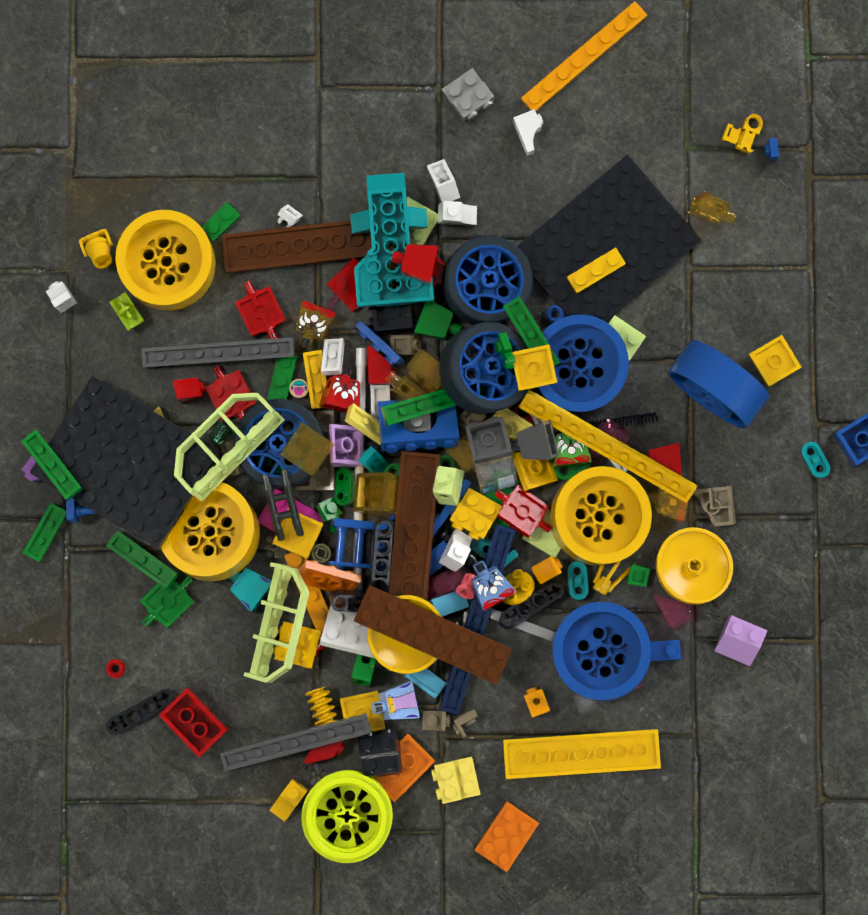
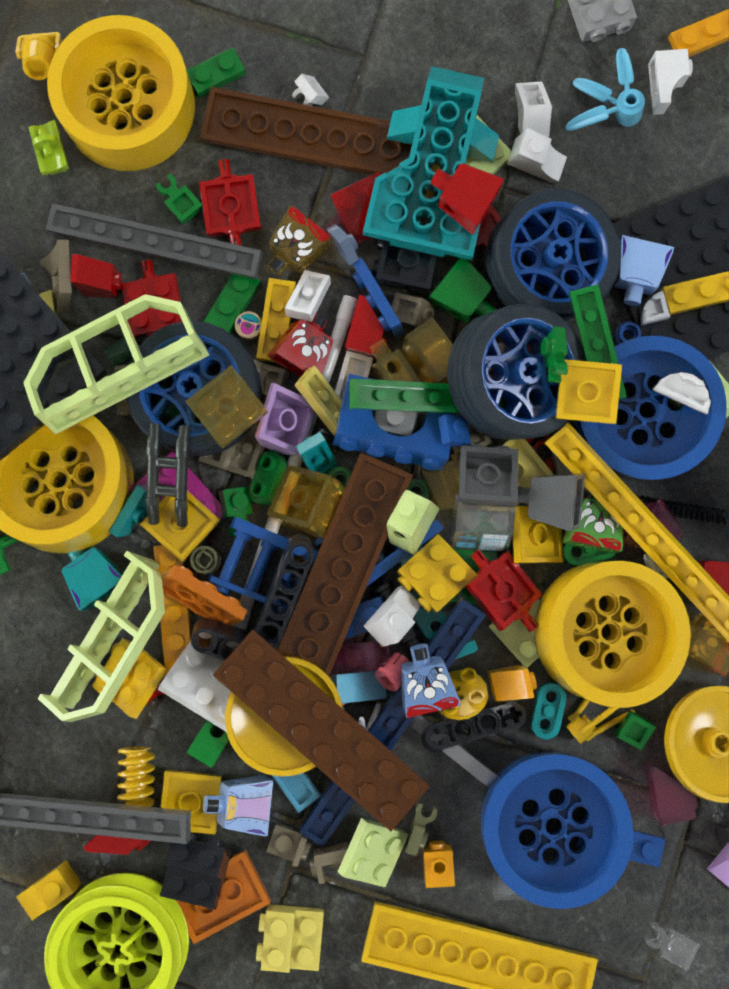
camera: 10 degrees right, 0 degrees up
(163, 395) = (57, 269): none -> dark tan plate
(227, 319) = (180, 201): none -> green plate
(264, 536) = (131, 513): none -> teal plate
(346, 314) = (345, 243): none -> sand blue plate
(457, 417) = (454, 430): none -> blue plate
(488, 156) = (628, 104): none -> medium azure plant
(491, 707) = (372, 853): none -> yellowish green plate
(517, 688) = (417, 836): none -> olive plate
(547, 269) = (641, 267): none -> light blue torso
(566, 293) = (655, 309): none -> white tile
(596, 346) = (686, 390): none -> white plate
(707, 706) = (674, 947): none -> clear plate

